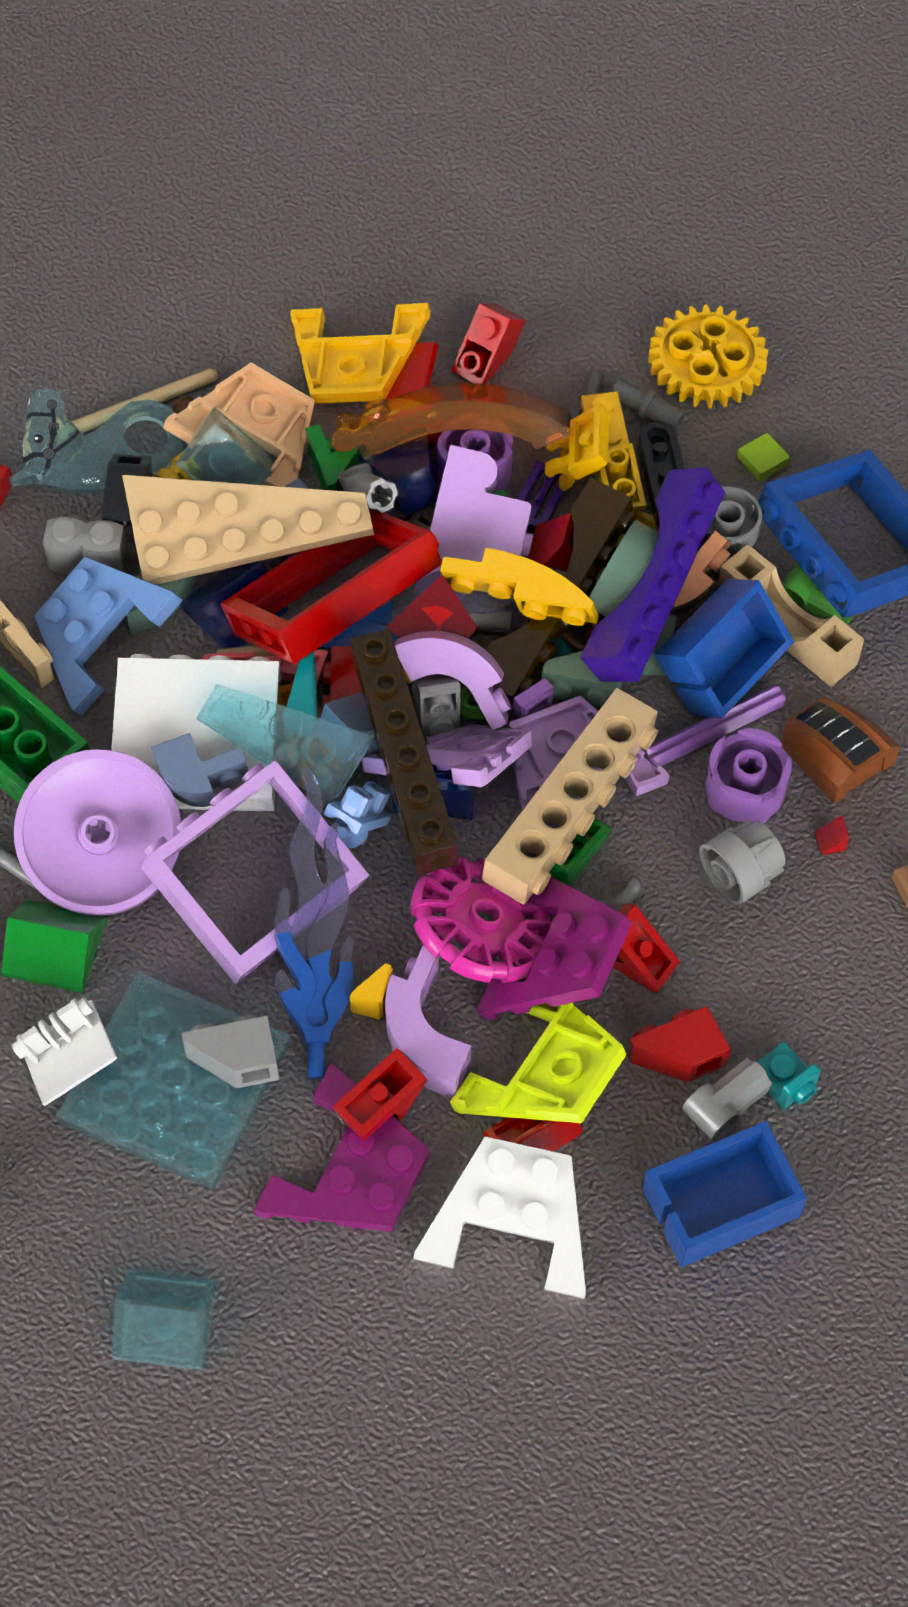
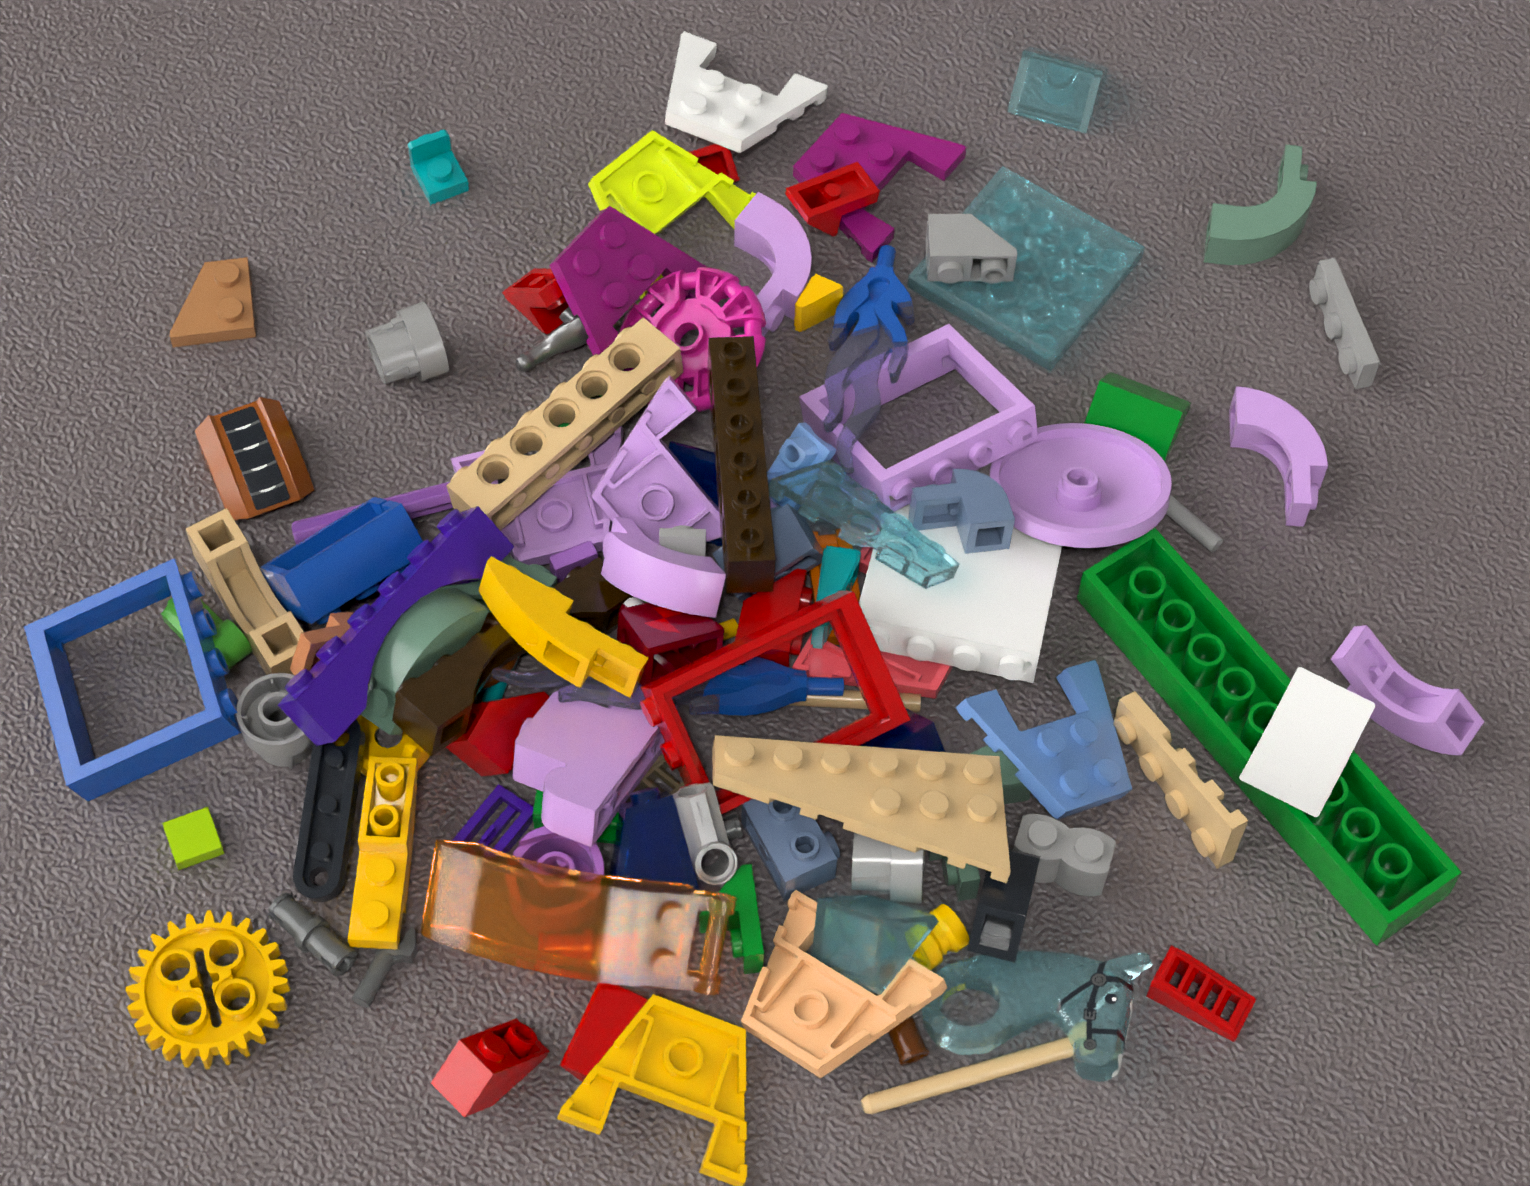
camera: 170 degrees left, 0 degrees up
(66, 1050) = (1130, 298): white hinge -> none
(584, 448) = (416, 823): yellow plate -> none
(681, 1048) = (531, 203): red slope -> none
(719, 1105) = (511, 150): light grey piece -> none
(724, 1193) = (535, 67): blue piece -> none
(747, 776) = (369, 431): medium lavender brick -> none
(832, 836) = (301, 377): red piece -> none

